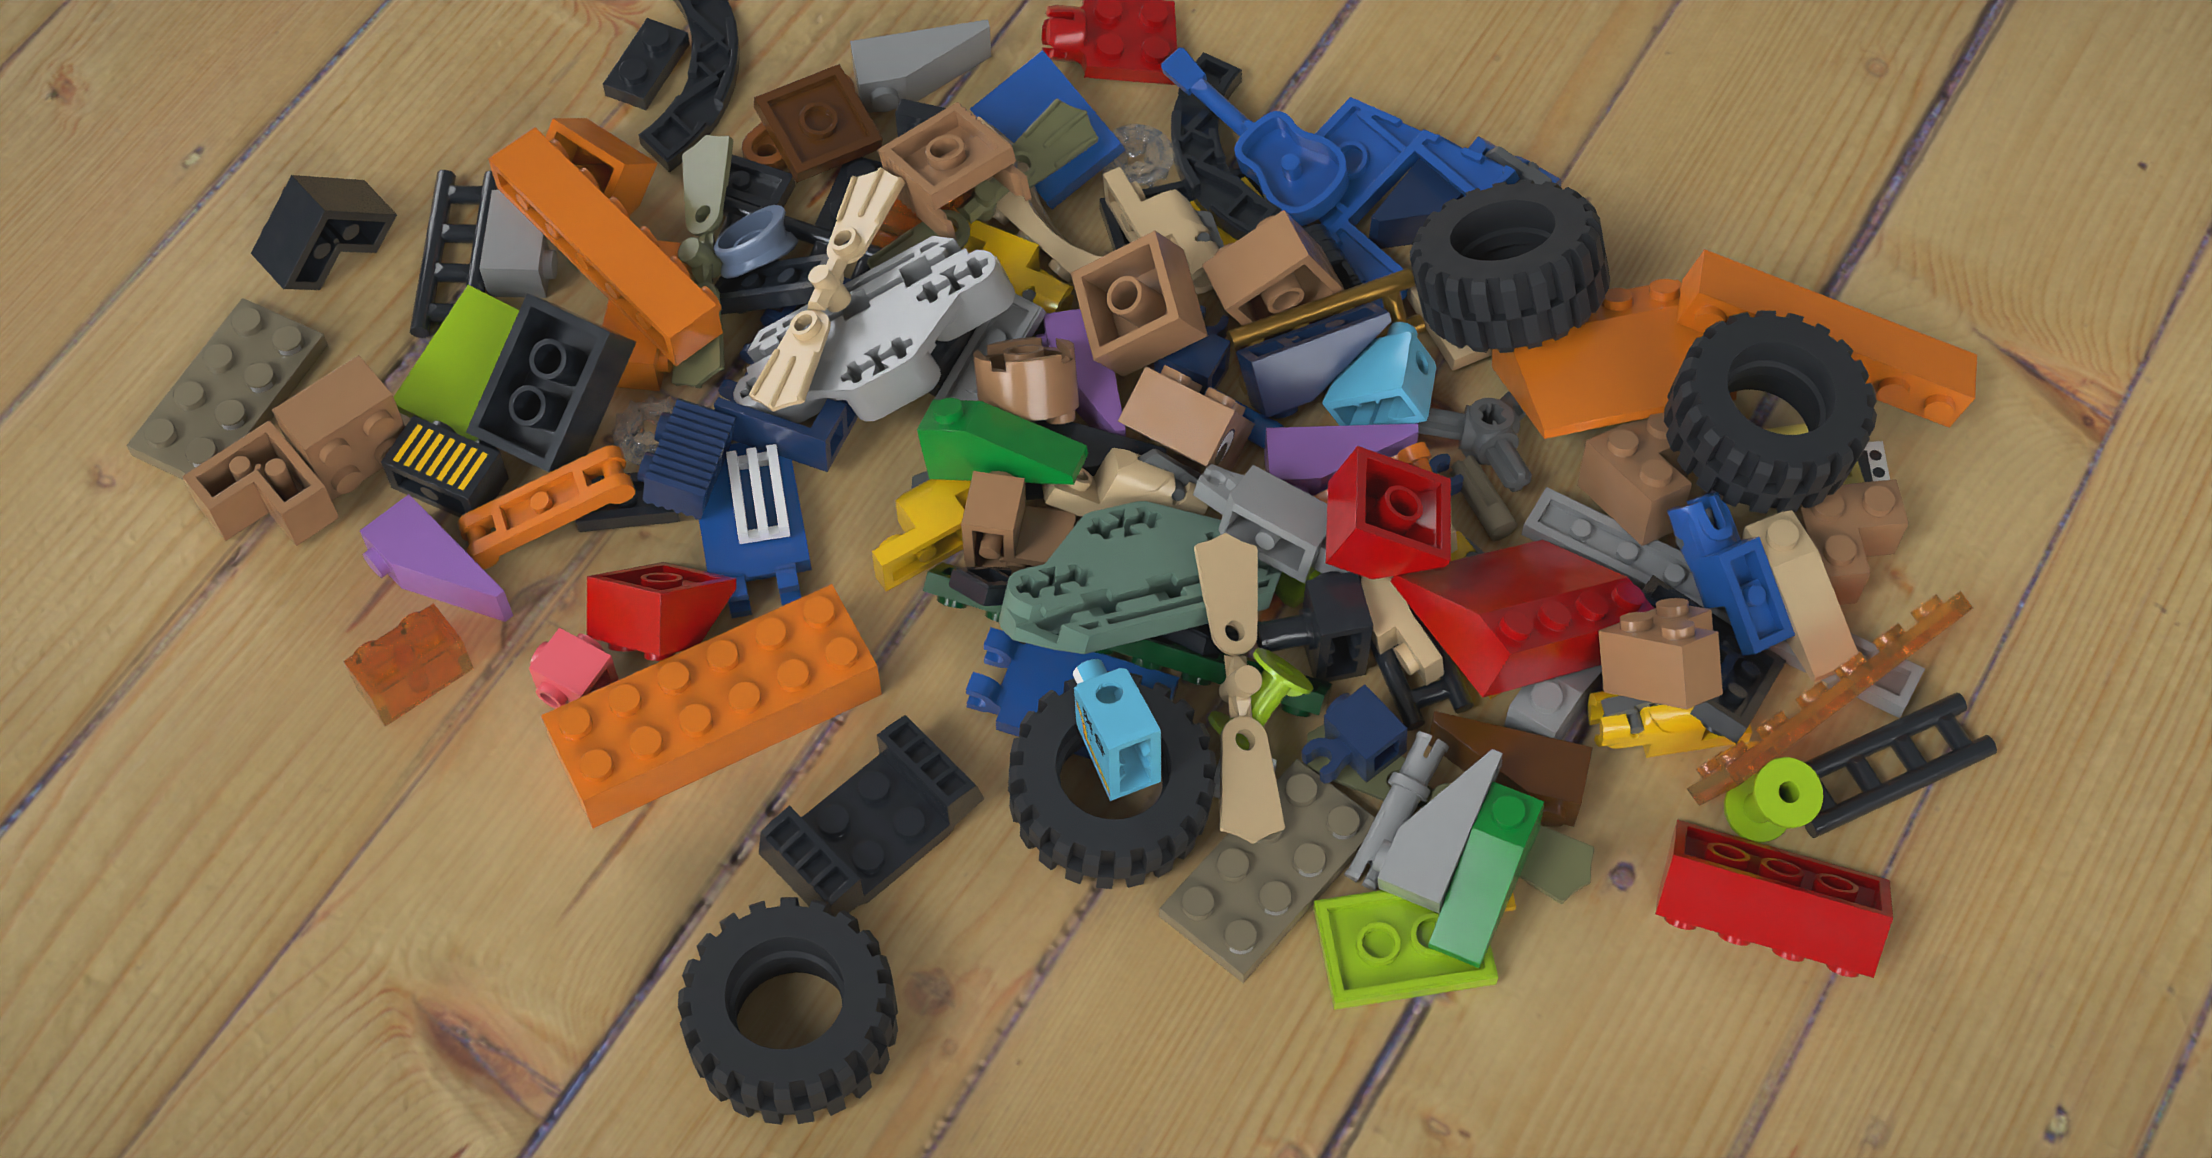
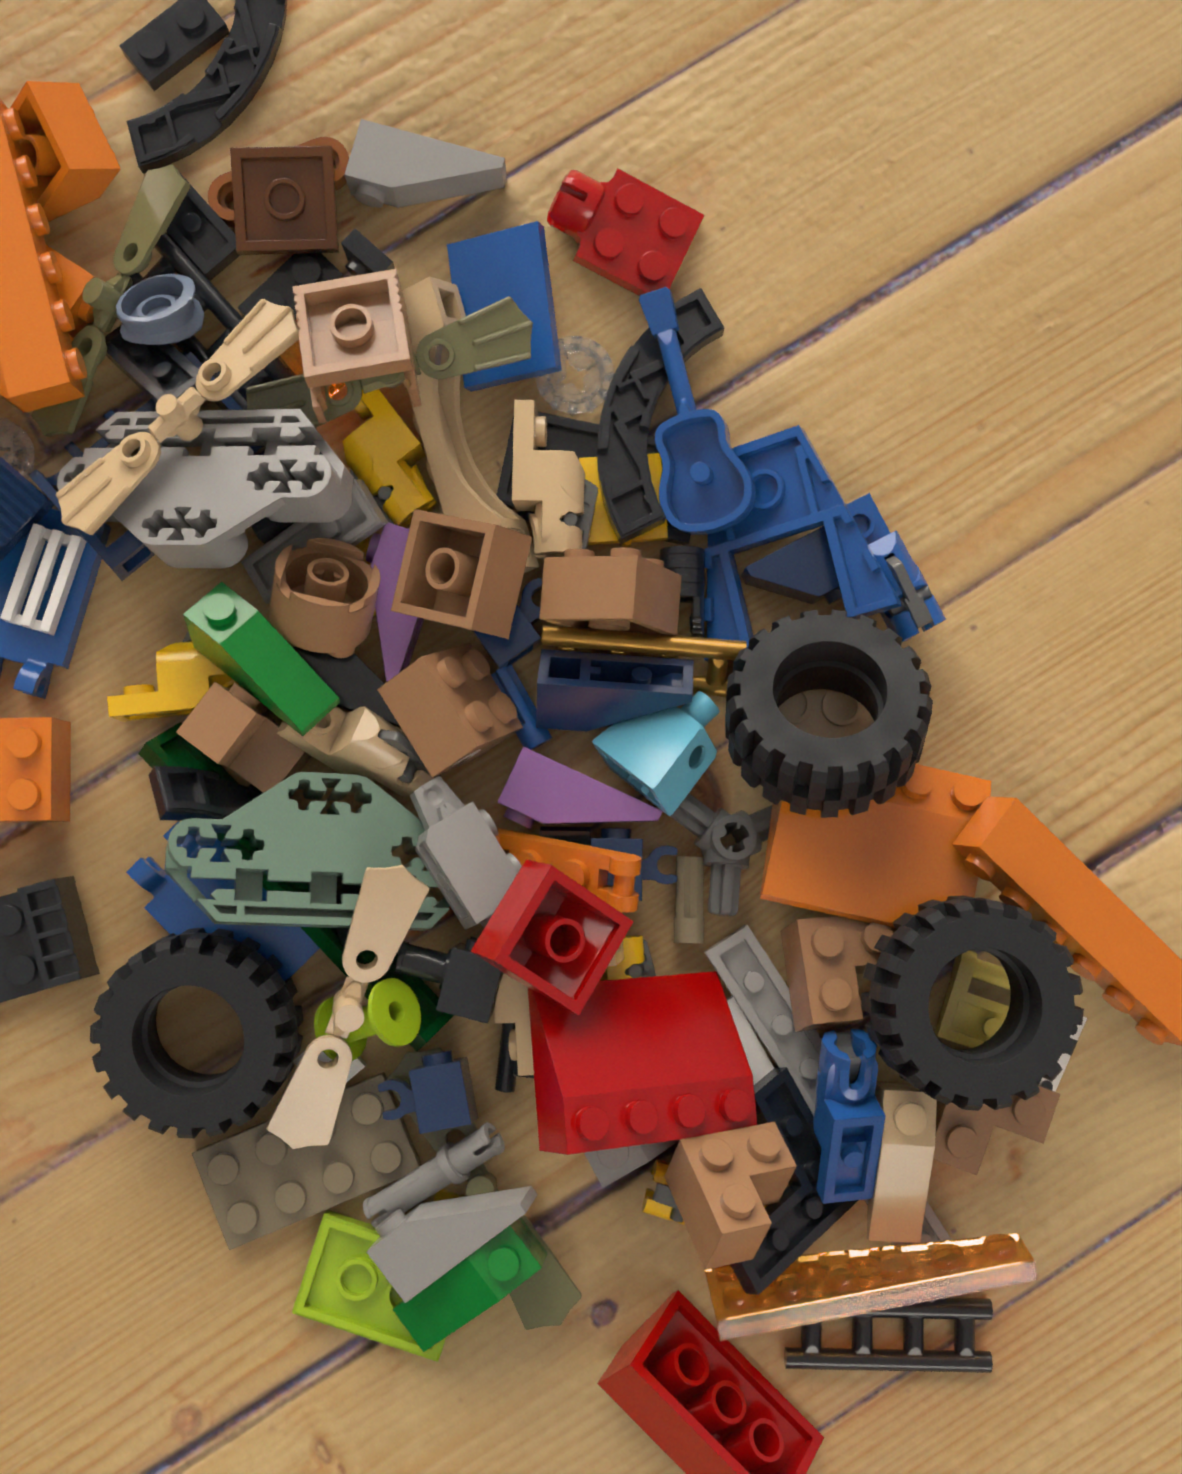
camera: 20 degrees right, 25 degrees up
(1117, 729) = (181, 1051): medium azure torso -> none
(1530, 762) = (568, 1190): reddish brown slope -> none
(1776, 798) = (762, 1362): lime piece -> none

